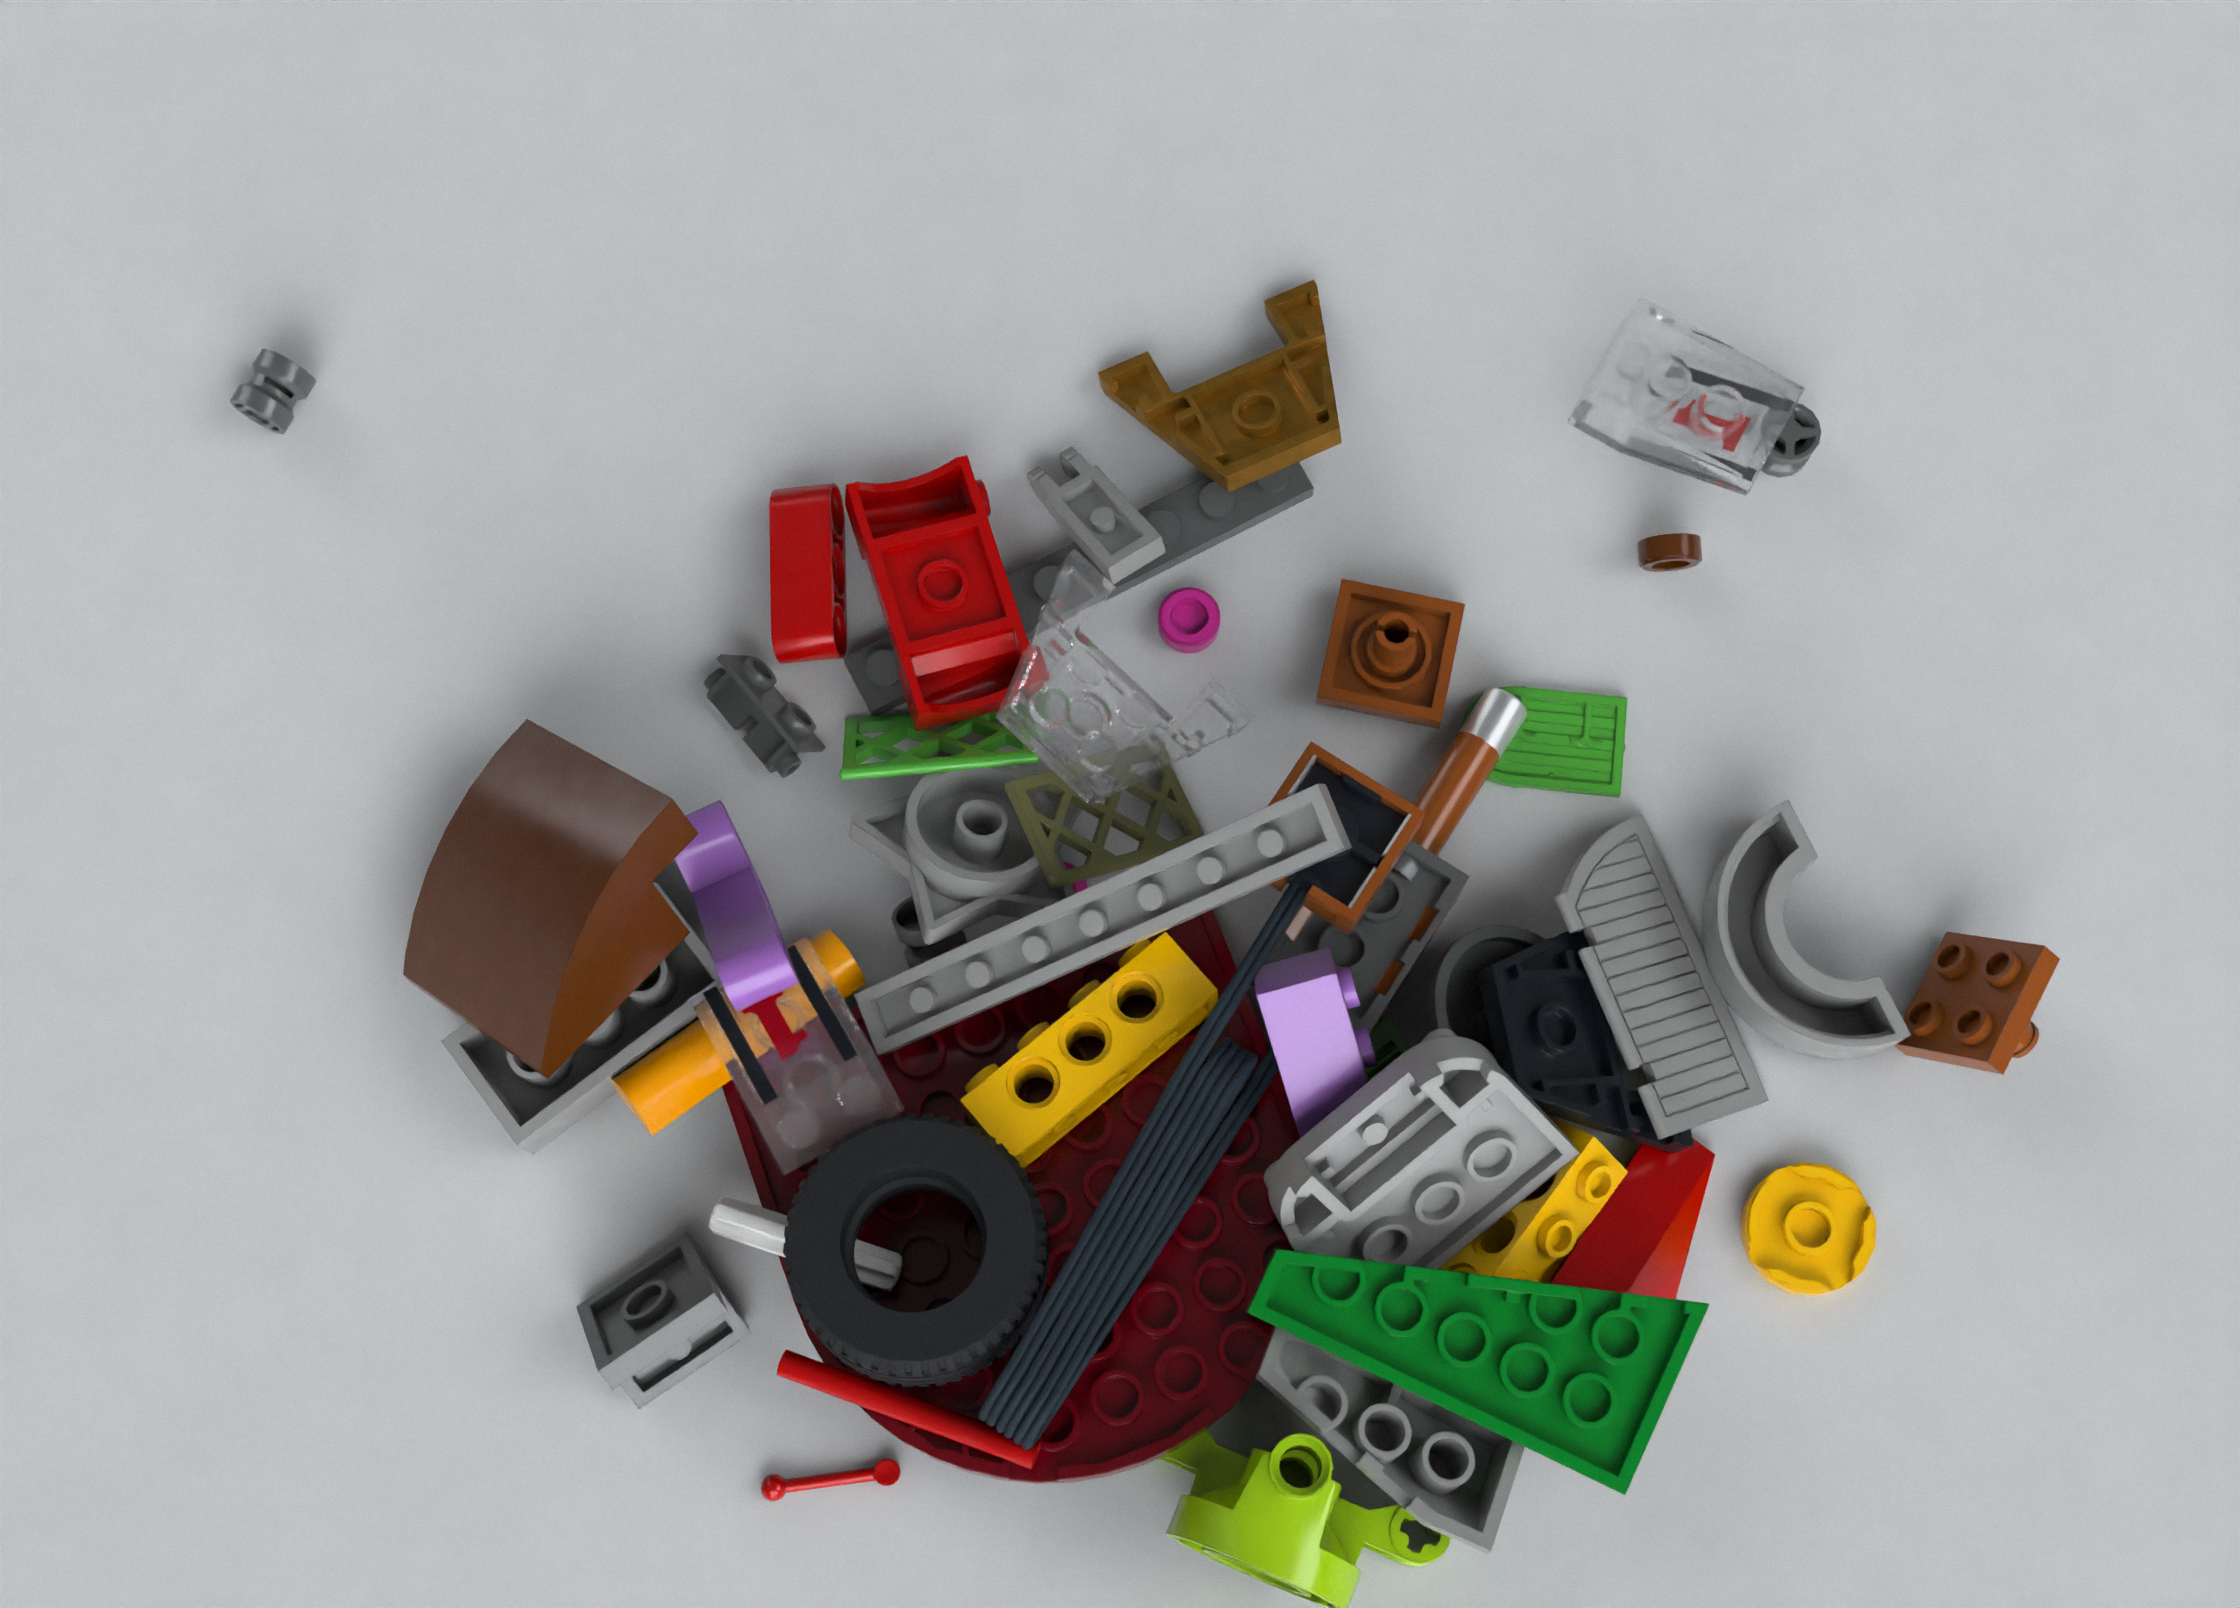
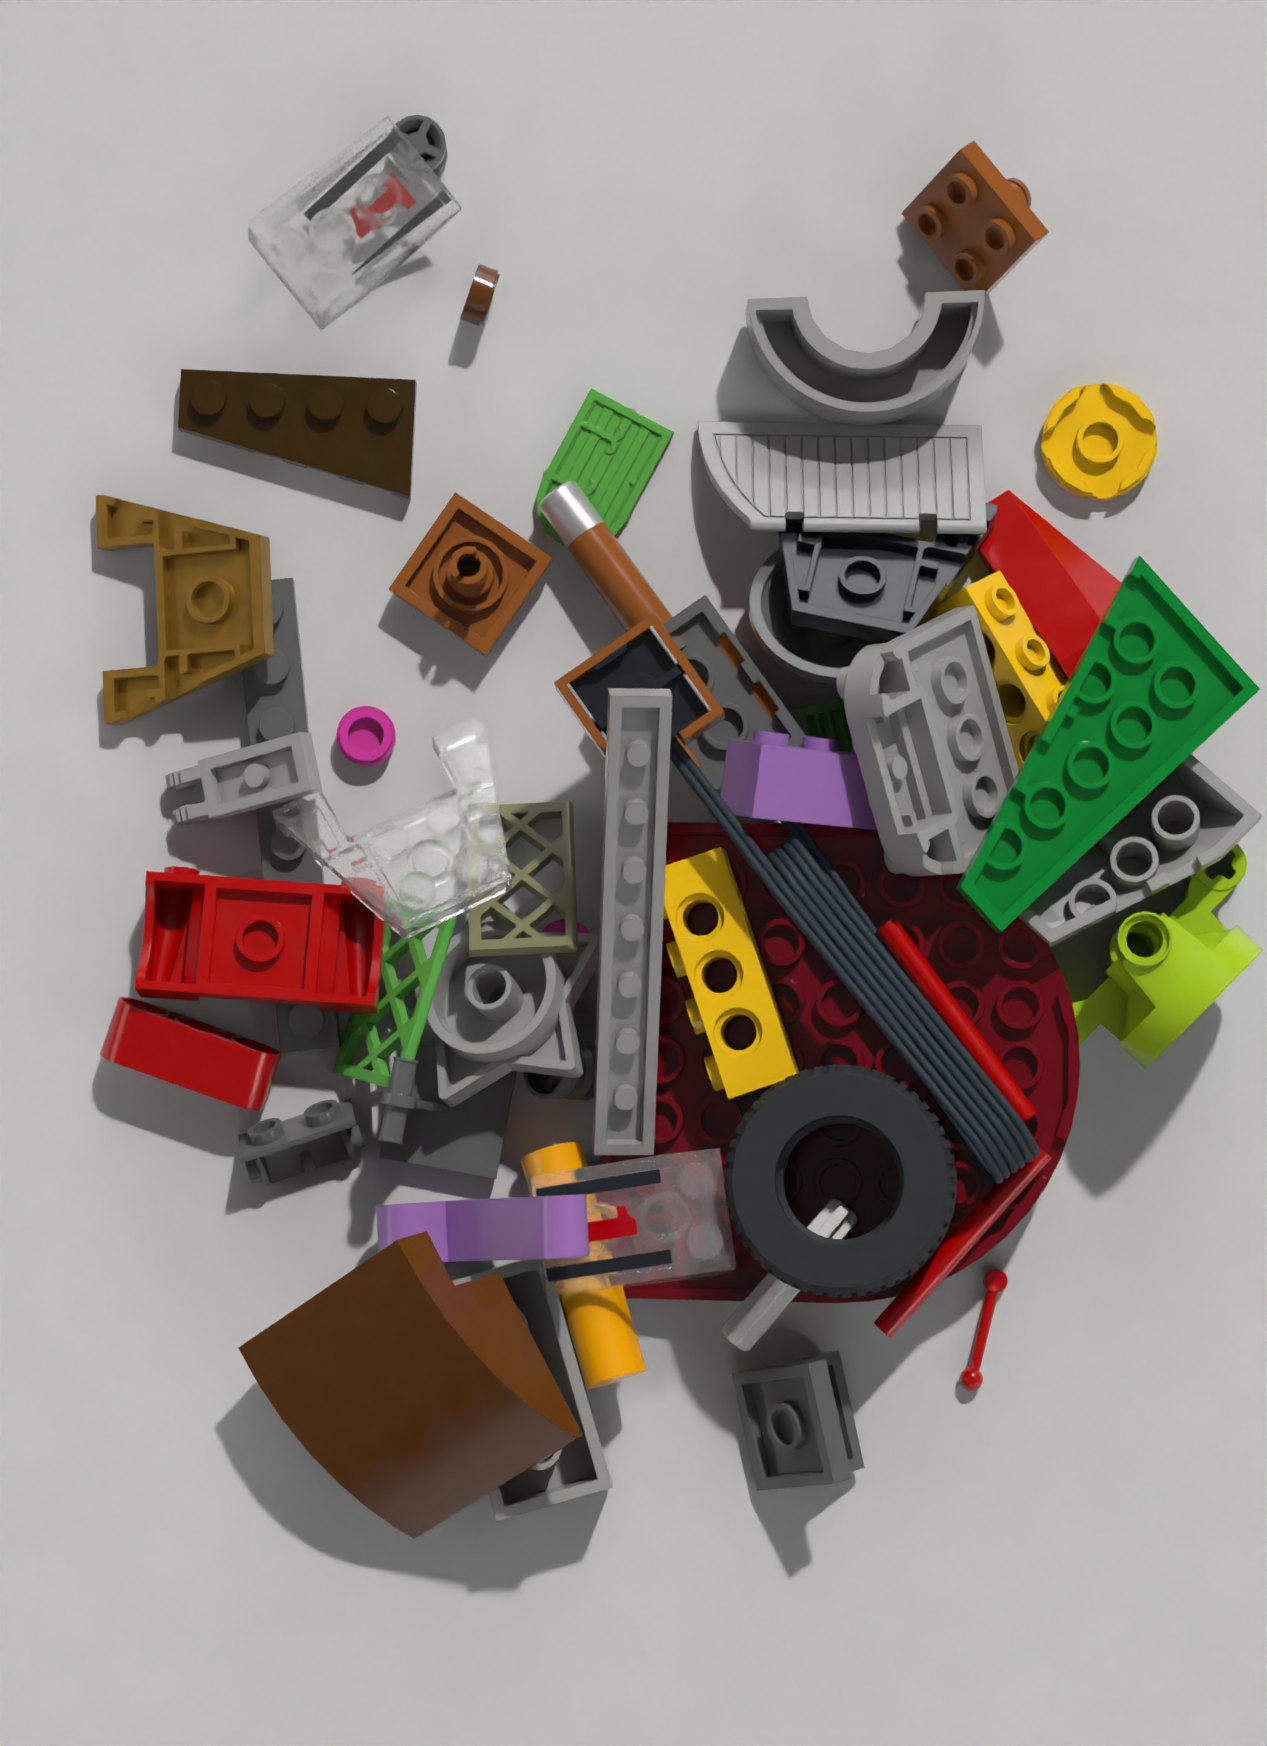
camera: 75 degrees left, 10 degrees up
(815, 818) = (430, 1133): none -> dark grey plate
(1135, 1311) = (952, 1014): none -> red piece
(1477, 460) = (319, 422): none -> dark brown wing

